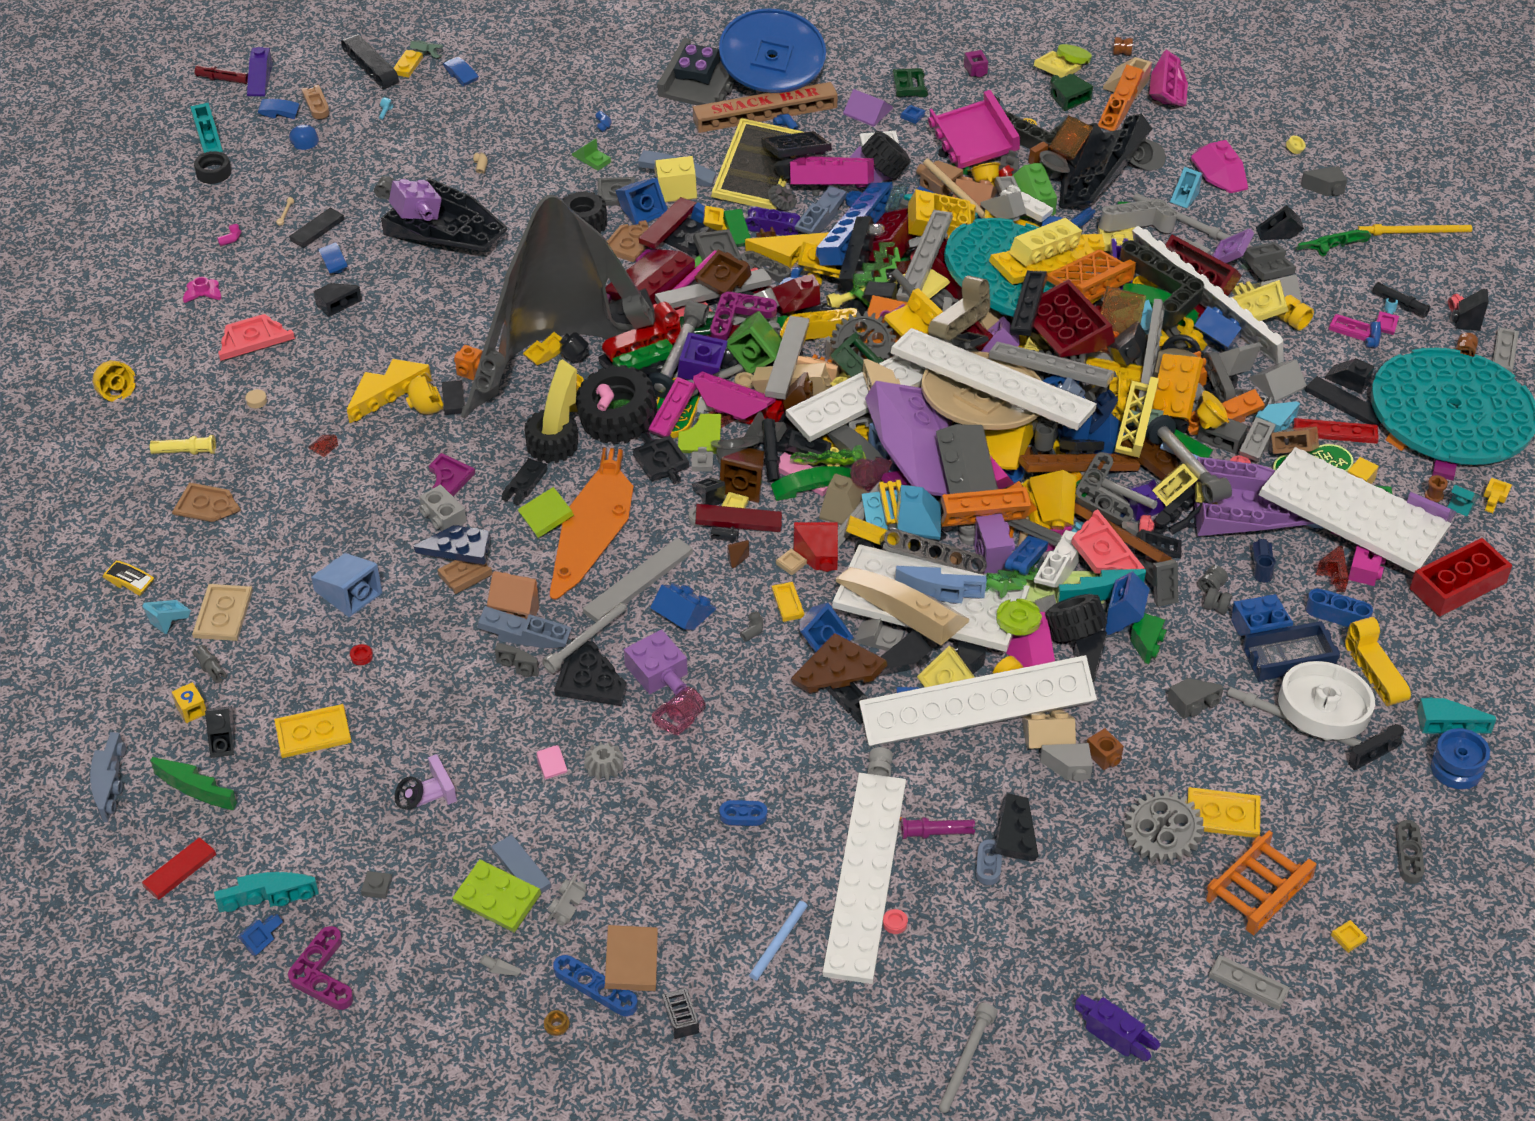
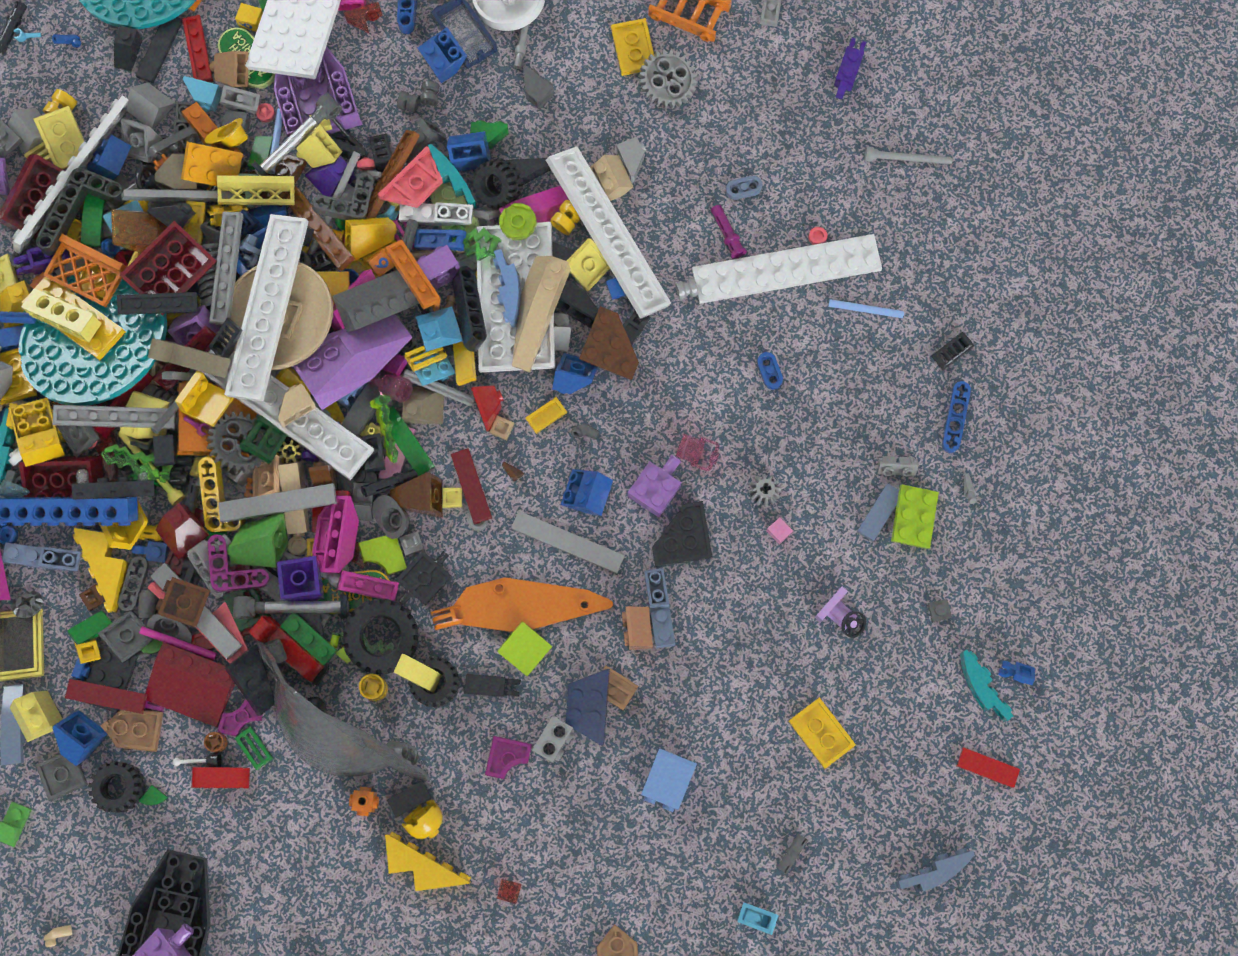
camera: 110 degrees left, 30 degrees up
(187, 780) = (912, 806): green slope -> none
(189, 702) = (839, 846): yellow brick -> none
(220, 731) = (855, 804): black slope -> none
(222, 612) = (732, 875): tan tile -> none
(314, 976) = (1034, 617): magenta beam -> none
(361, 654) = (731, 733): red tile -> none
(524, 662) = (694, 595): dark grey slope -> none
(553, 661) = (686, 566): light grey piece -> none
(556, 1016) = (996, 424): pearl gold plate -> none
(606, 396) = (389, 638): bright pink arm -> none
(631, 958) = (927, 399): medium nougat tile -> none
(711, 491) = (448, 521): black slope -> none
(724, 533) = (491, 491): black pin -> none
(773, 218) = (67, 586): dark purple piece -> none
(1016, 830) = (711, 175): black wing -> none
(1105, 749) = (610, 143): dark orange brick -> none
(1195, 334) = (126, 177): yellow plate -> none
(1263, 560) = (371, 70): dark blue piece -> none
(1349, 329) = (57, 75): dark pink tile -> none
(1388, 322) = (45, 33): dark pink tile -> none

